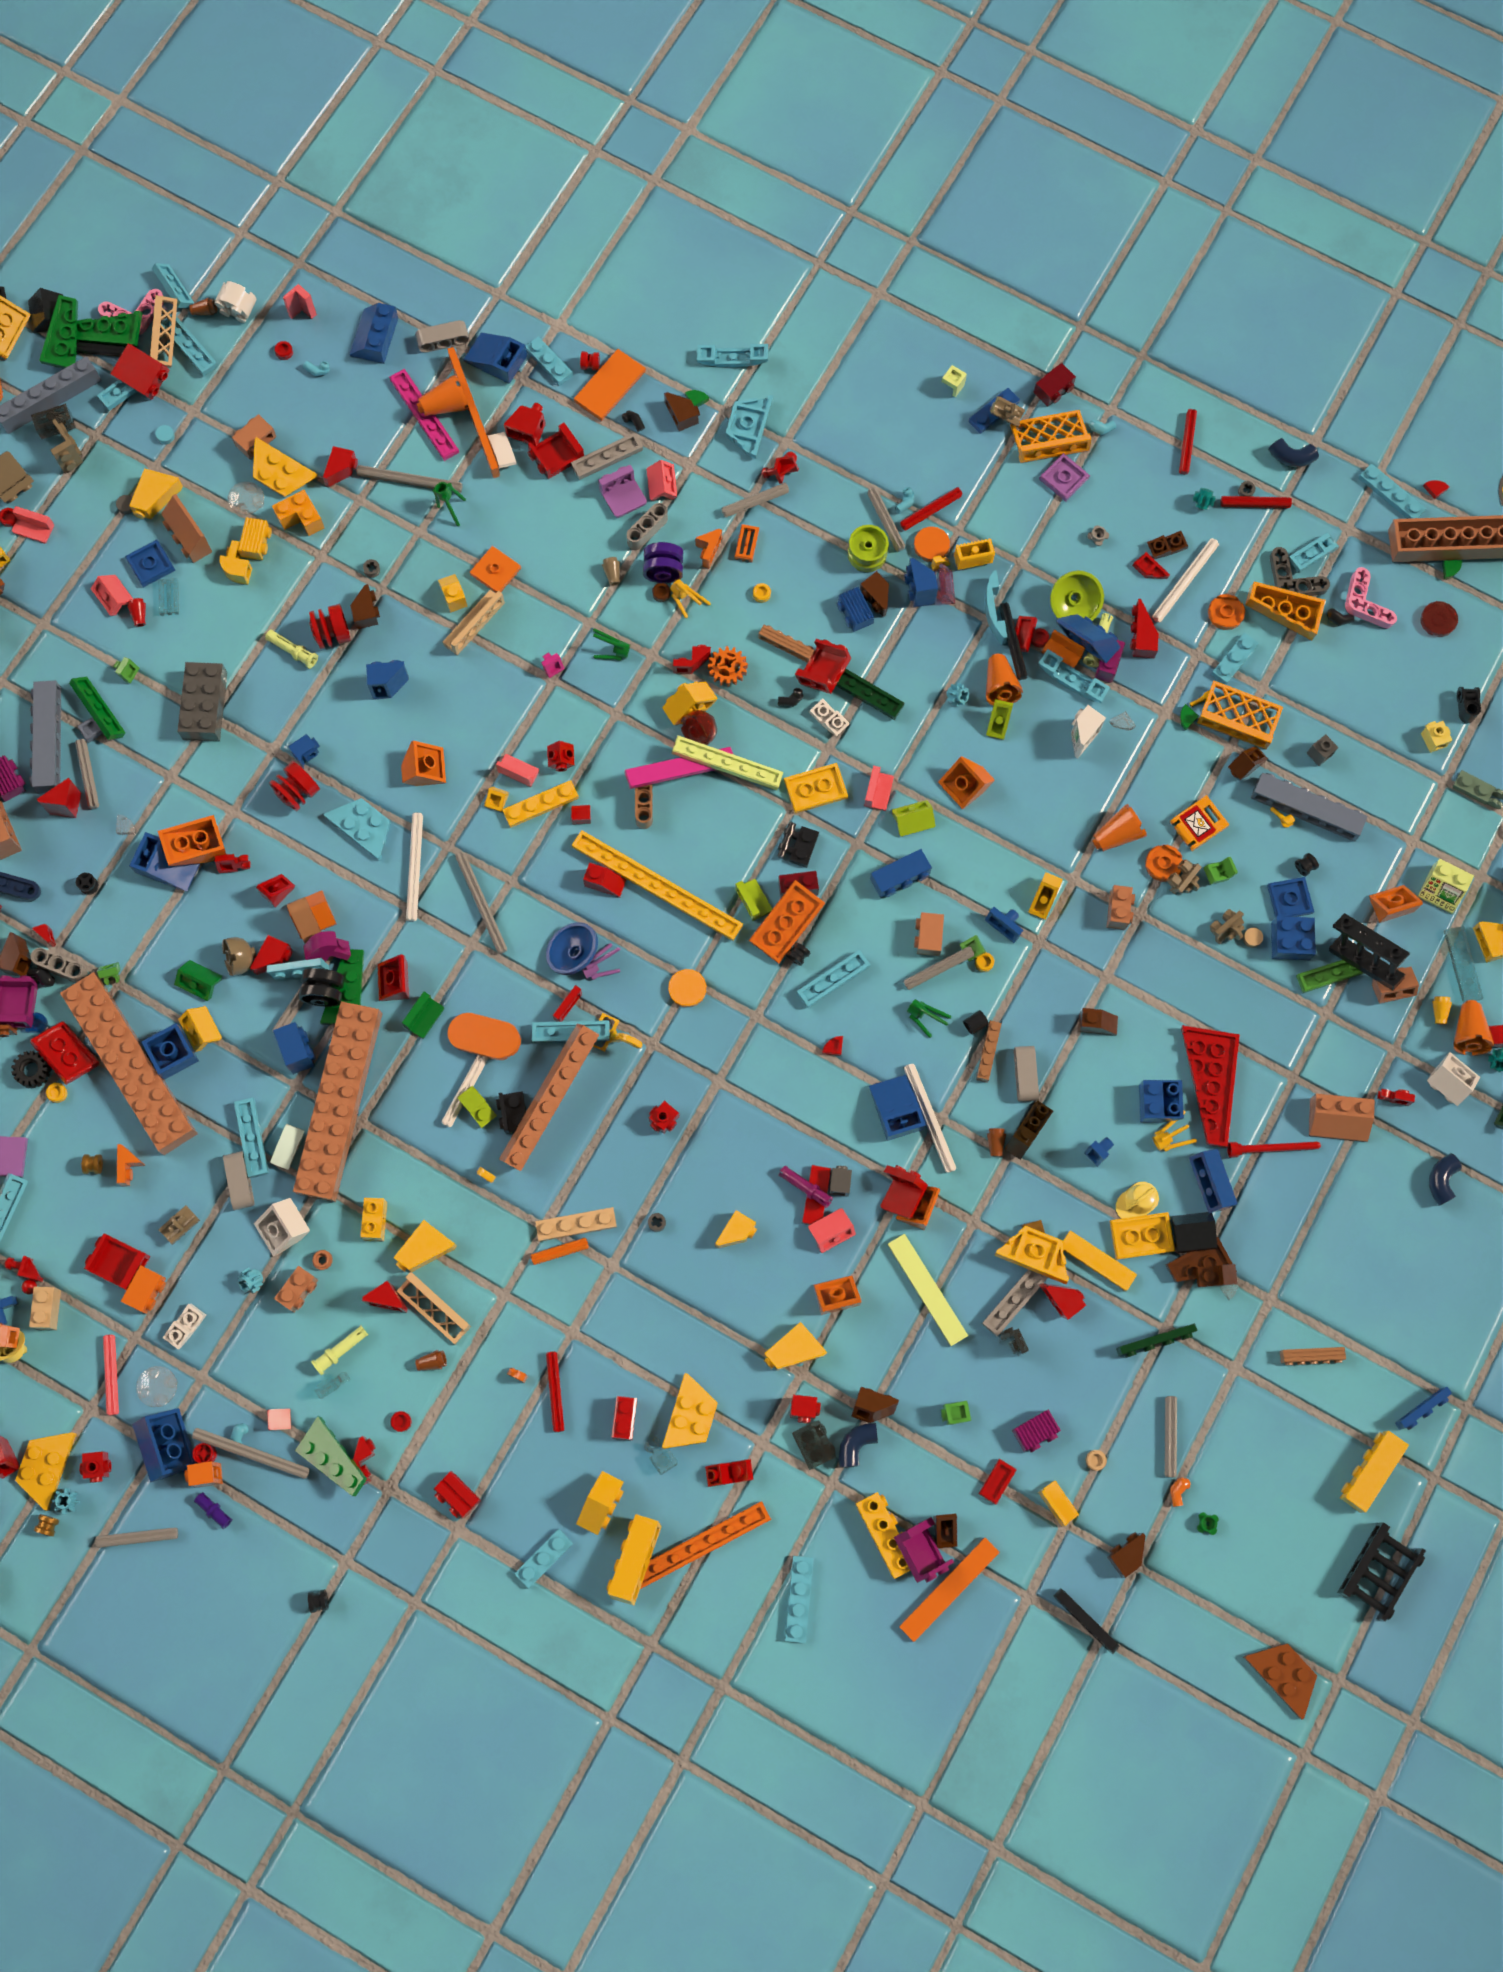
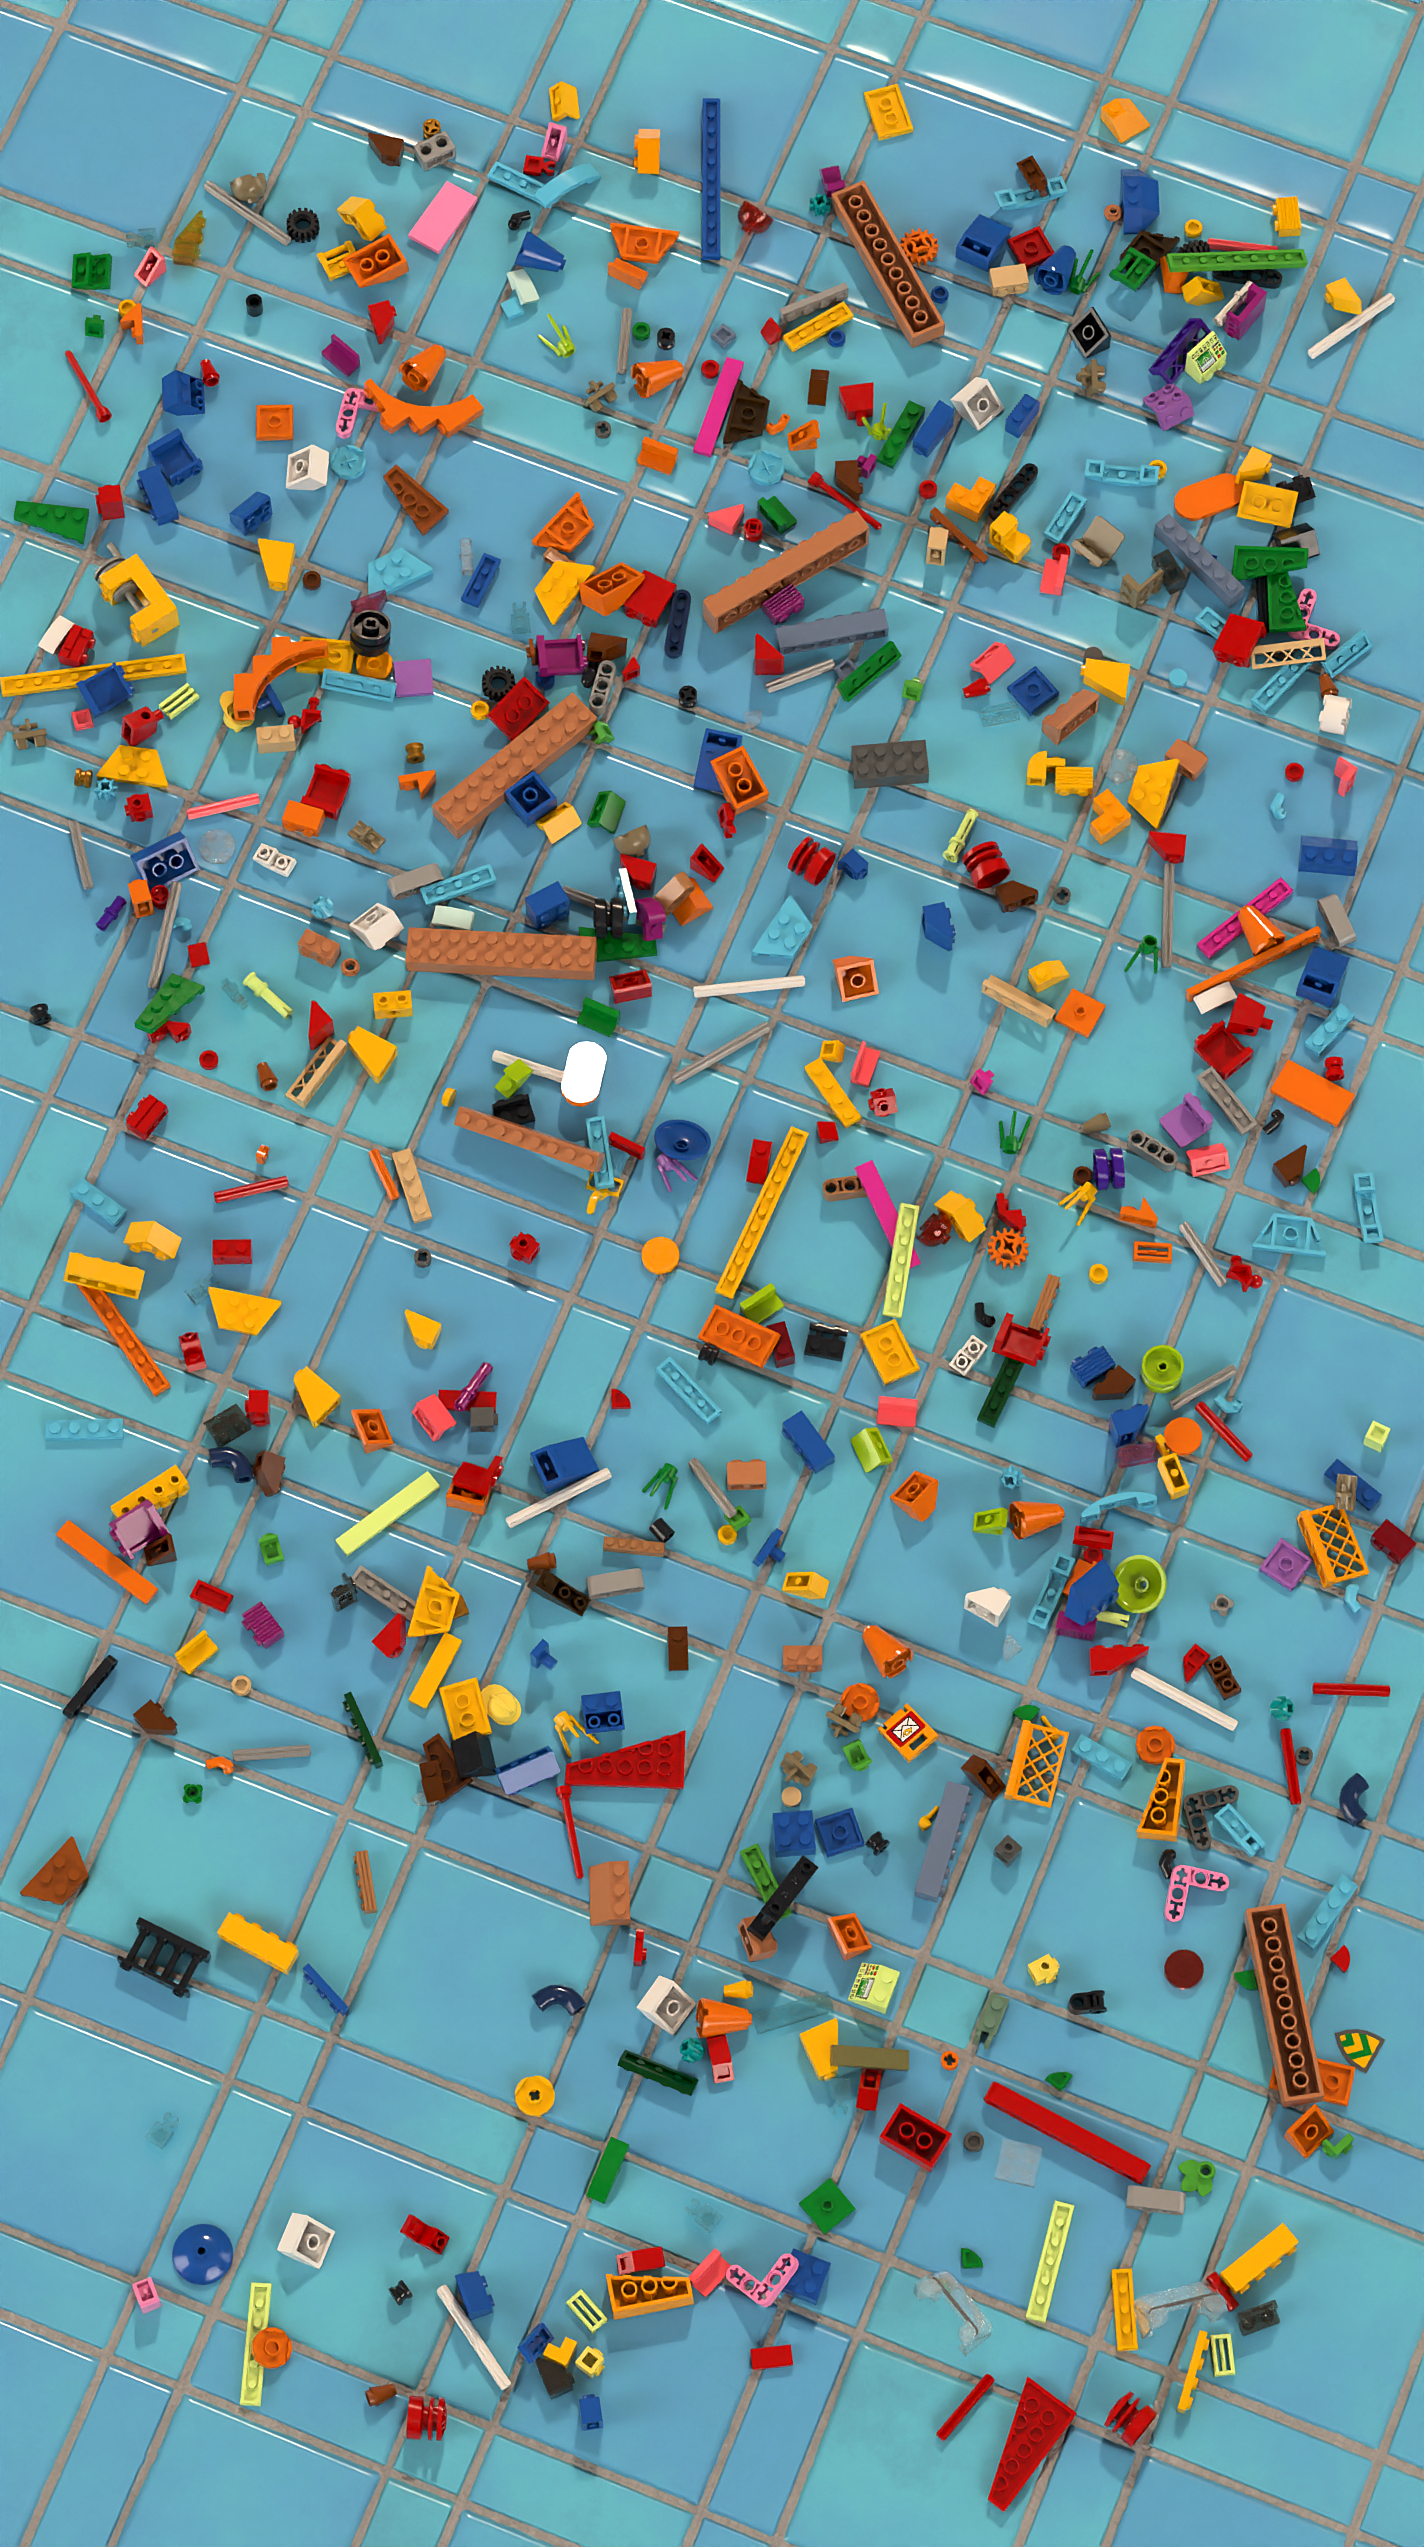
camera: 85 degrees right, 5 degrees down
(1013, 642) = (1080, 1525): black axle -> none

